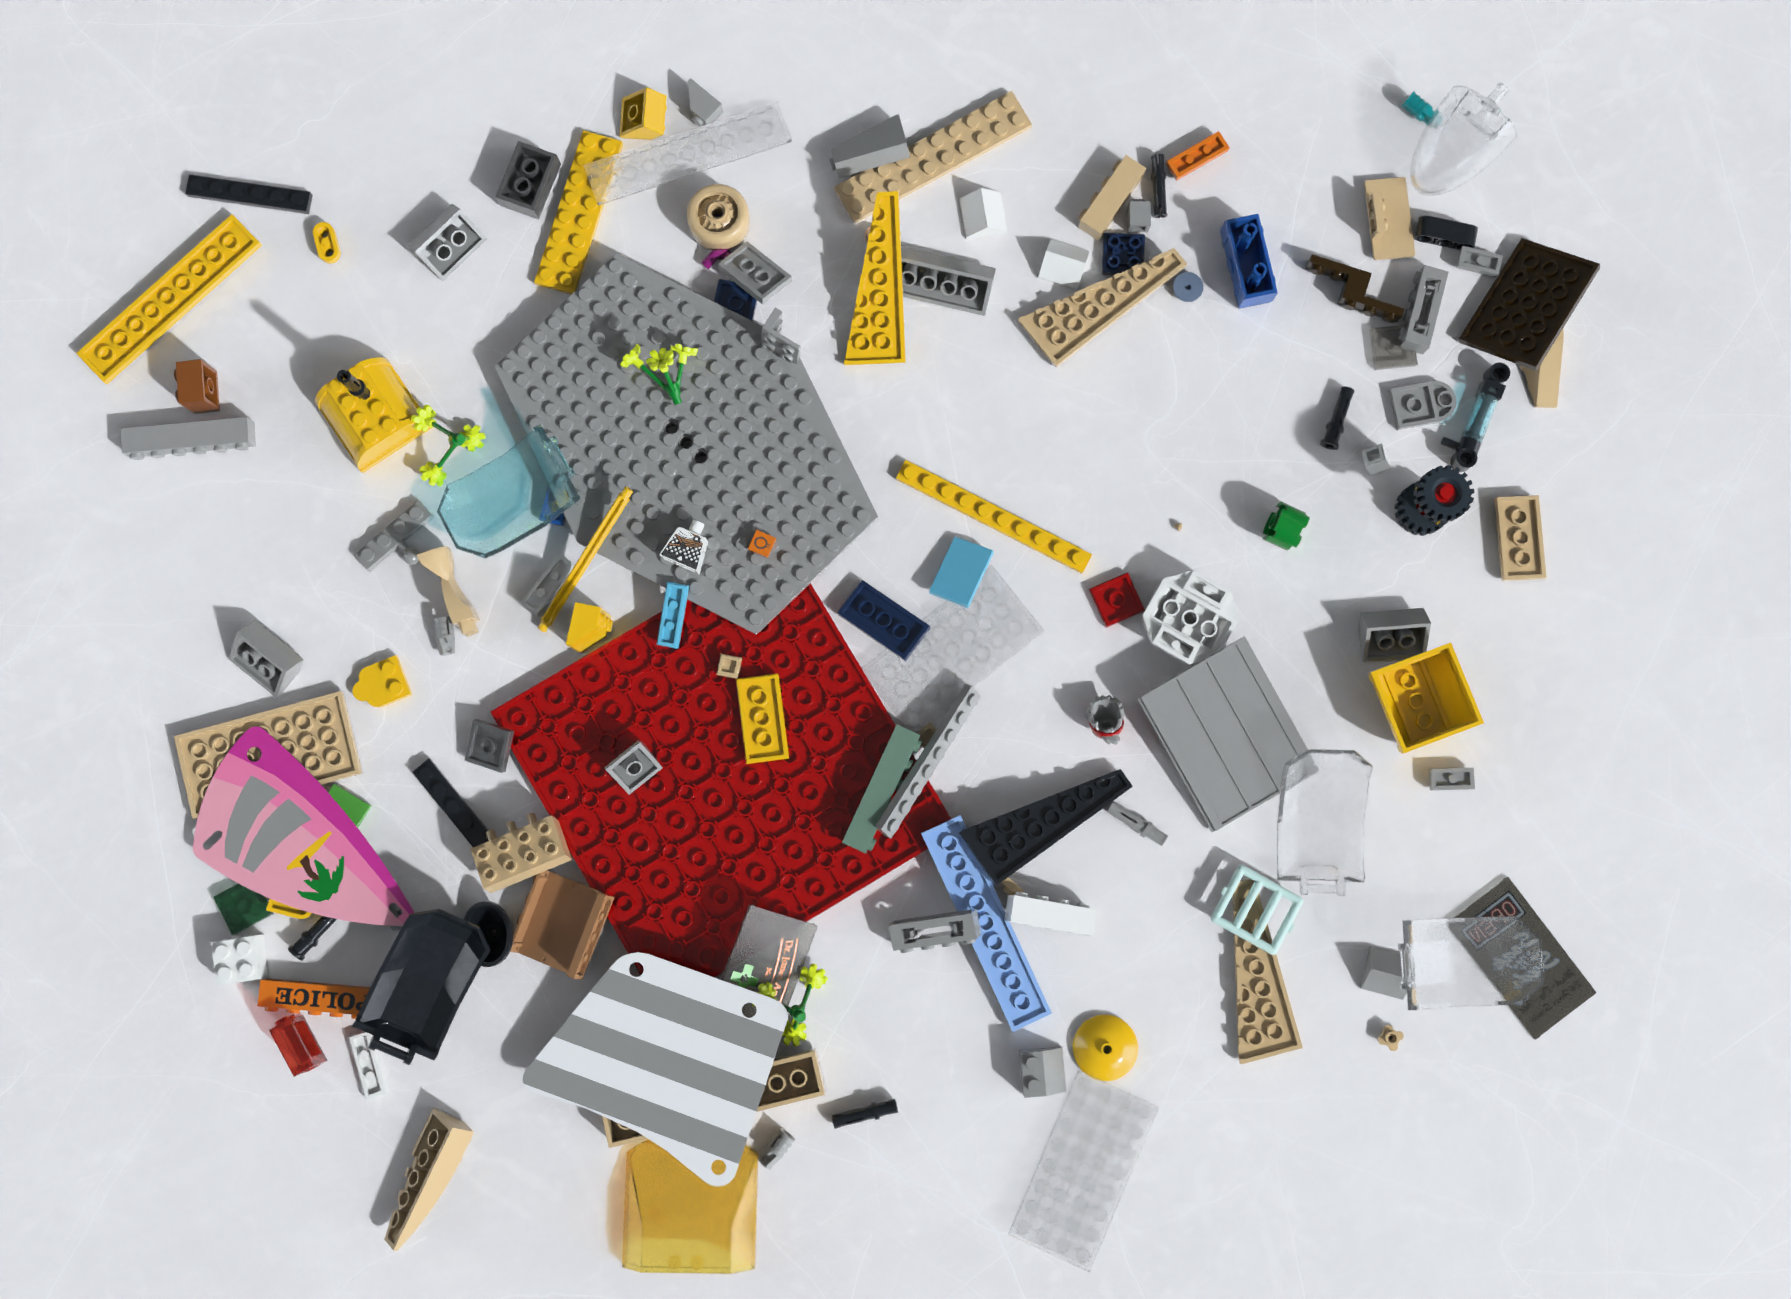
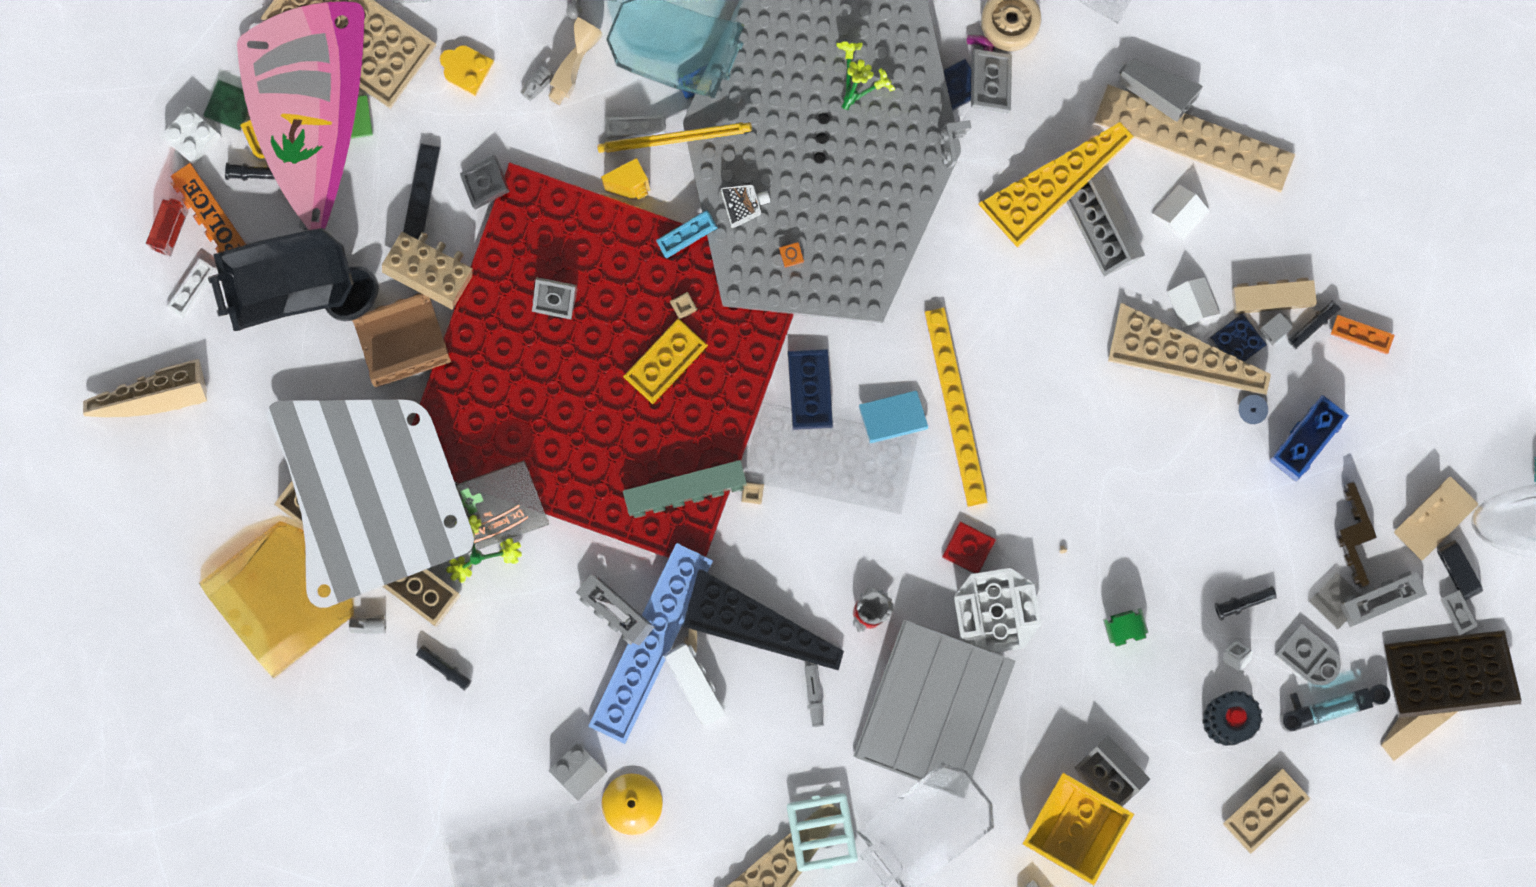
camera: 55 degrees right, 0 degrees up
(928, 761) = (733, 505): light grey plate -> none

